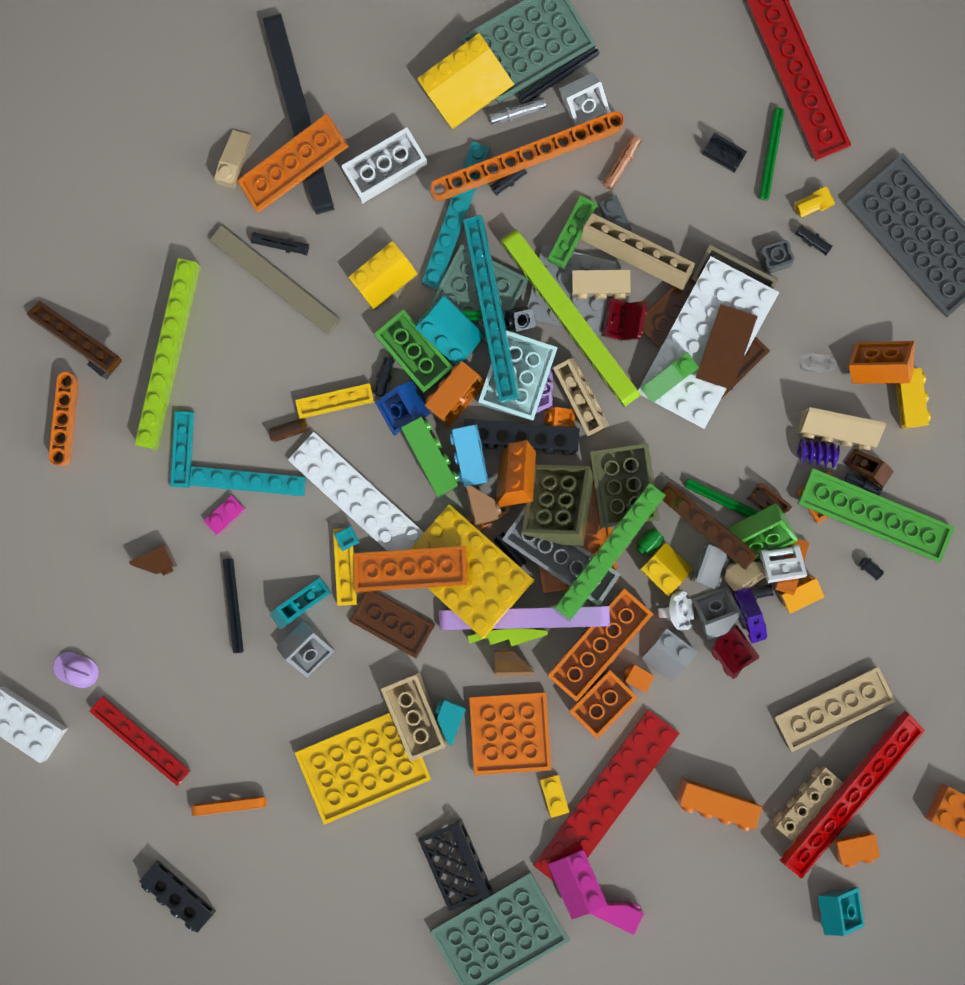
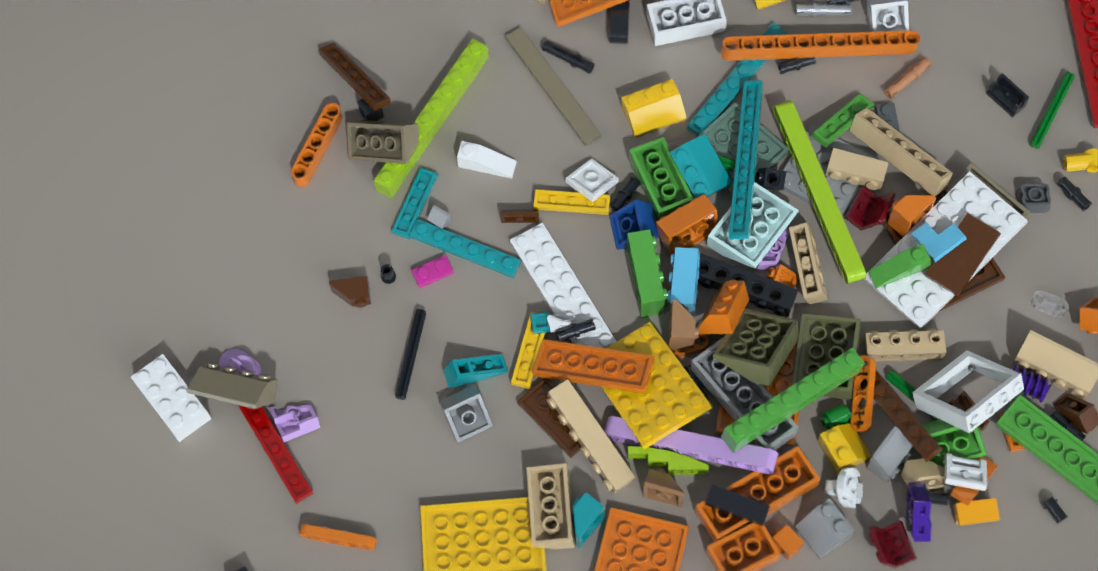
camera: 20 degrees right, 20 degrees down
(77, 701) = (233, 386): none -> dark tan slope
(127, 400) = (382, 141): none -> dark tan slope
(147, 707) = (294, 421): none -> lavender slope
(187, 536) = (388, 275): none -> black pin
(211, 459) = (439, 217): none -> light grey slope
(236, 383) = (485, 160): none -> white slope
(347, 372) = (592, 180): none -> white tile
(363, 533) = (558, 322): none -> white slope
(381, 537) = (575, 330): none -> black pin
(429, 637) = (590, 436): none -> tan brick
(585, 665) = (737, 505): none -> black tile
(664, 318) = (909, 212): none -> orange slope
(672, 514) = (867, 394): none -> orange beam
(694, 450) = (905, 345): none -> tan brick
(699, 346) = (938, 244): none -> medium azure tile
(716, 612) = (884, 503): light grey slope -> none
(742, 473) = (927, 394): none -> white window

